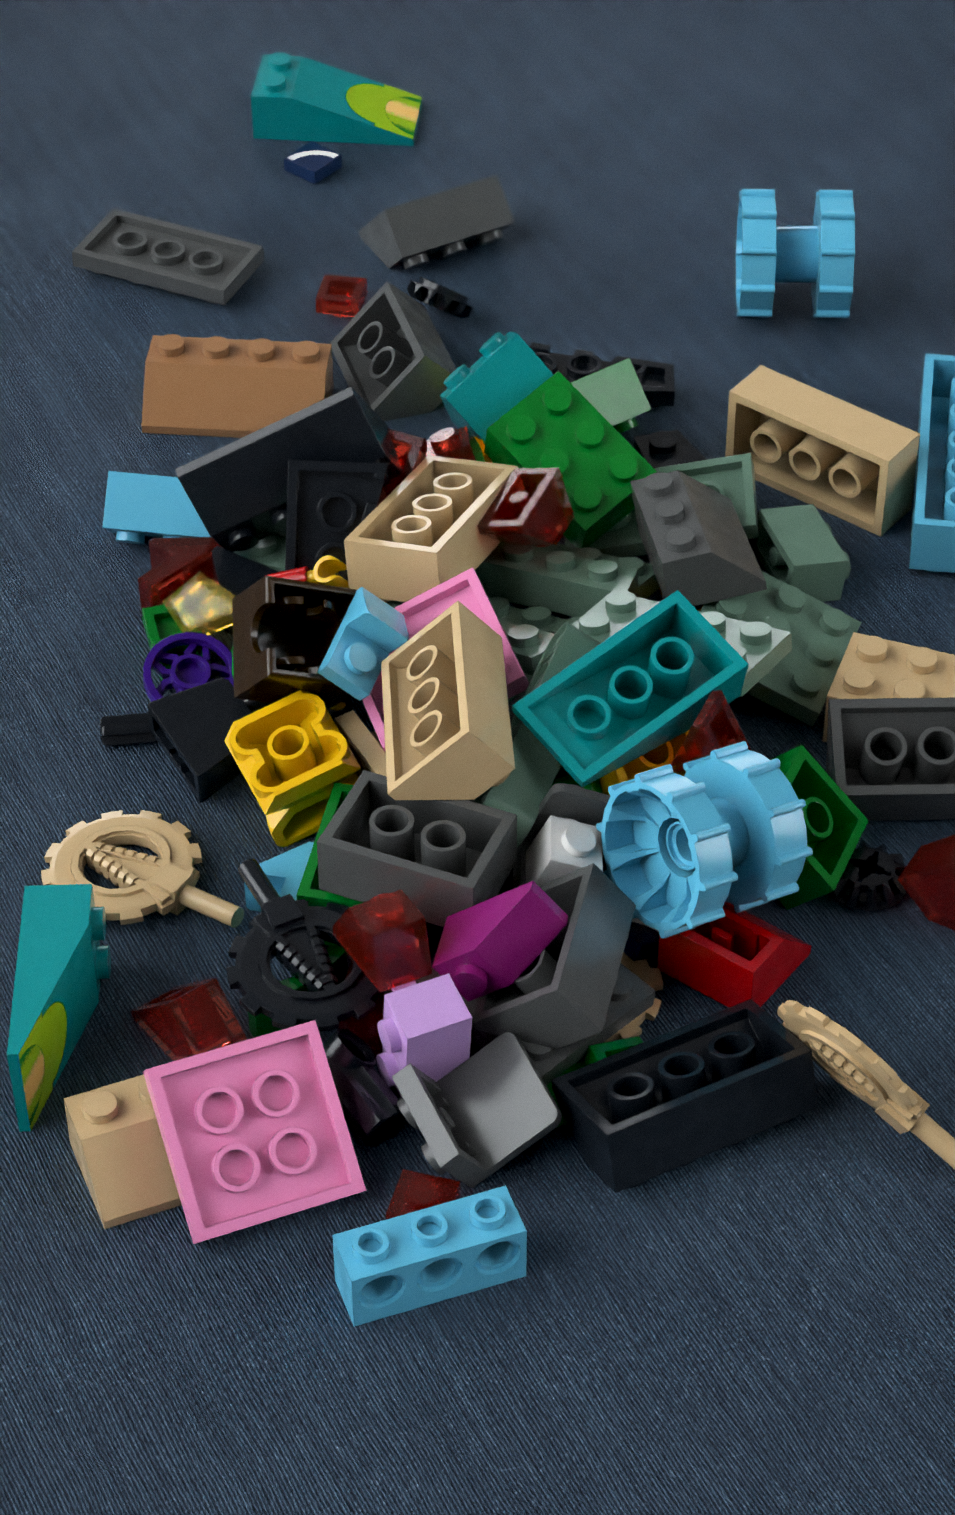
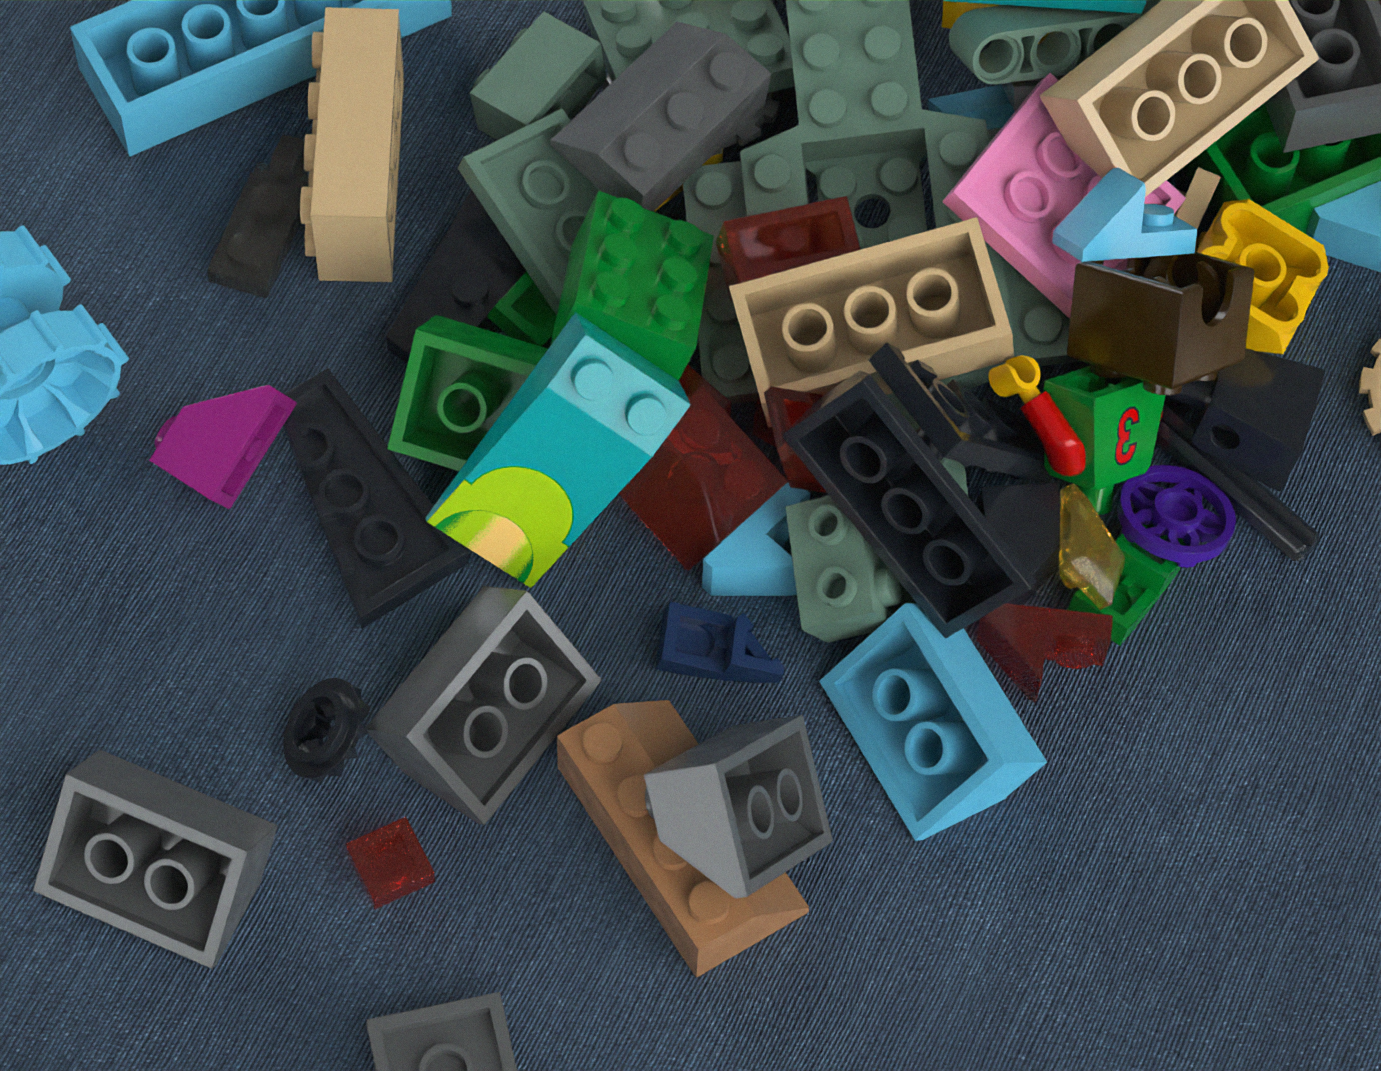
camera: 130 degrees left, 20 degrees up
(207, 375) = (742, 804): none -> dark grey slope
(661, 327) = (221, 440): none -> magenta slope

